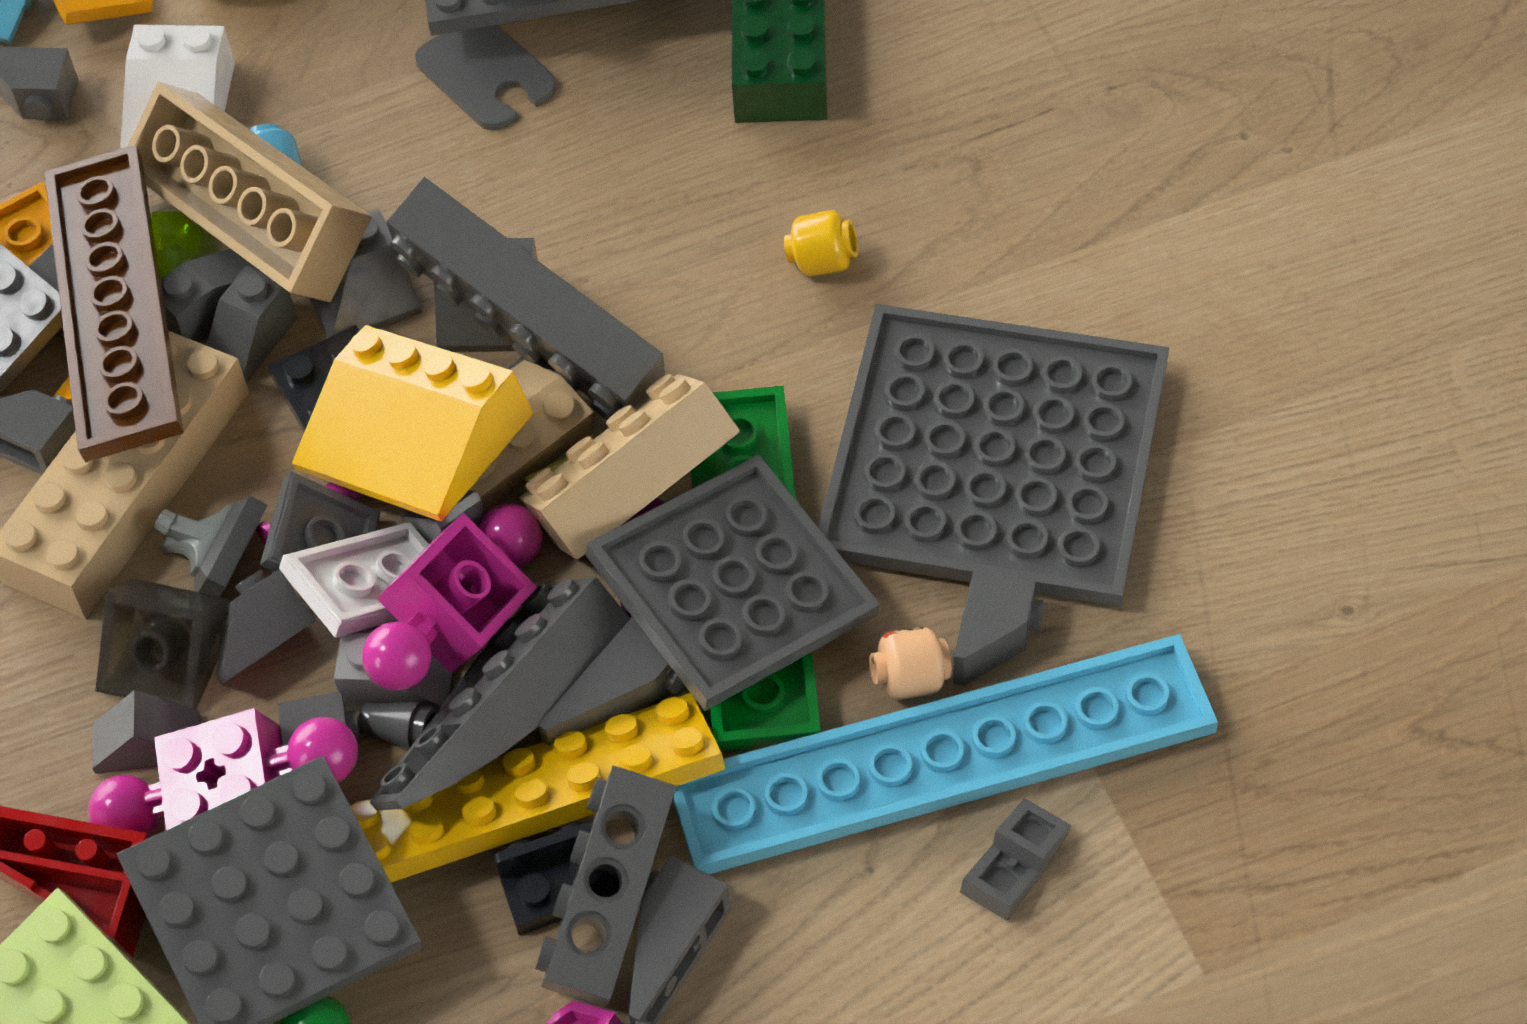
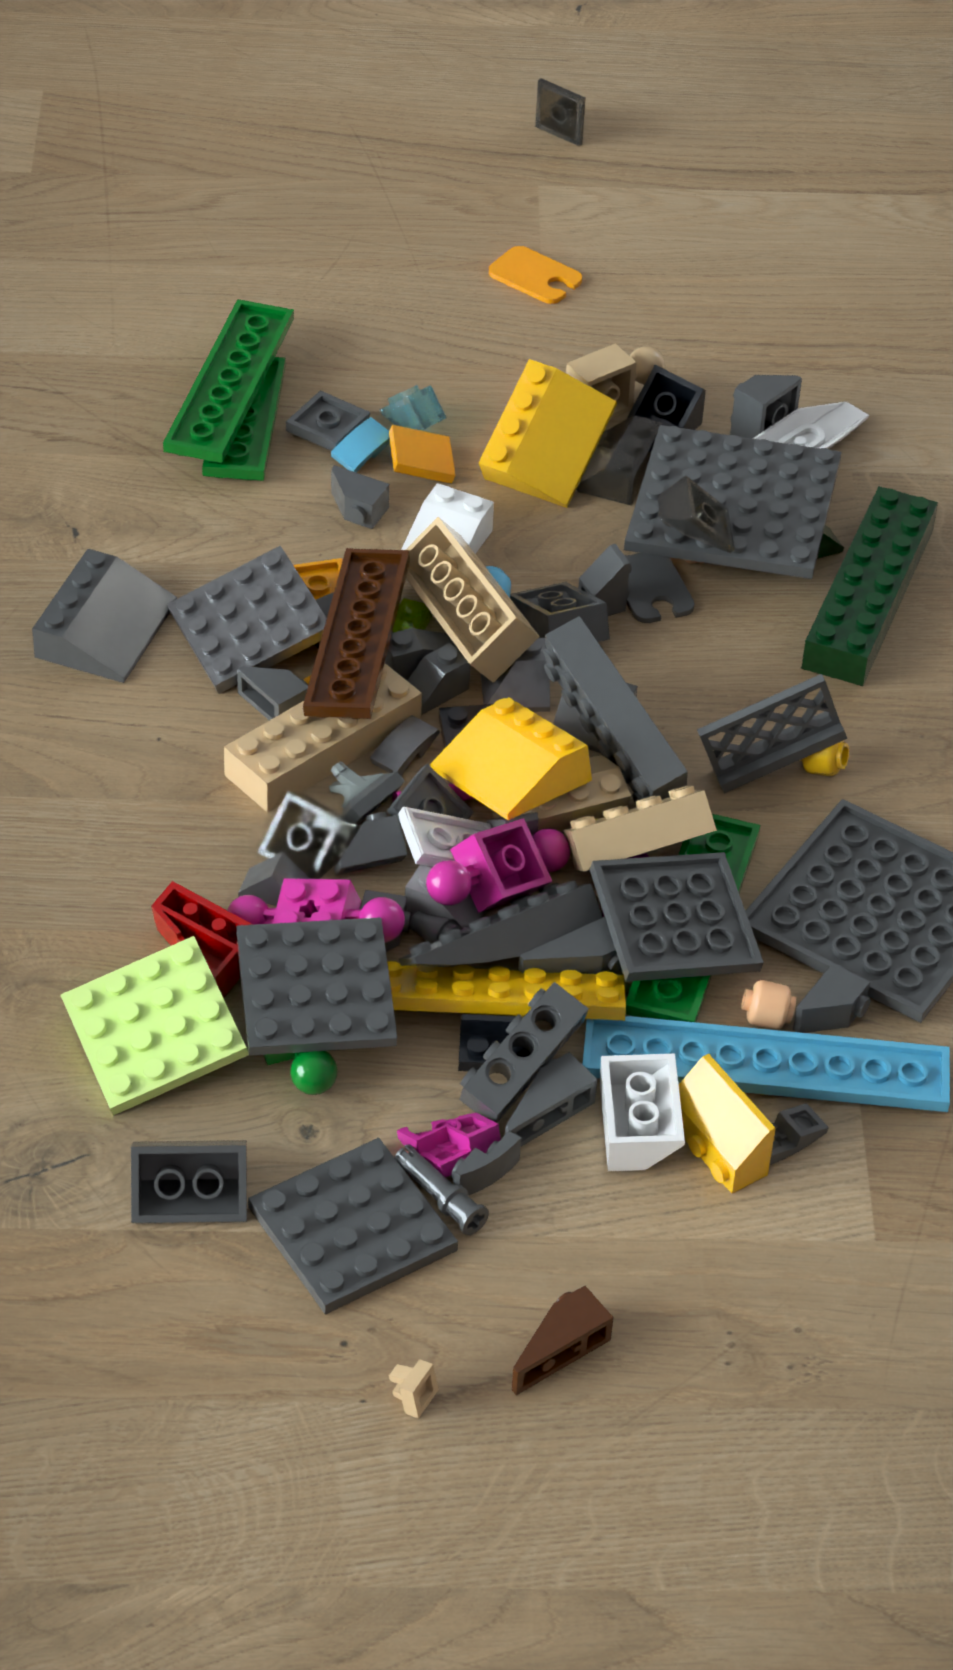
camera: 15 degrees right, 10 degrees down
(240, 443) = (403, 744): none -> flat silver slope
(381, 159) = (559, 603): none -> dark grey slope
(425, 95) = (609, 579): none -> dark grey slope
(772, 252) = (777, 746): none -> dark grey fence
(807, 909) = (640, 1110): none -> white slope
(928, 889) = (724, 1126): none -> slope

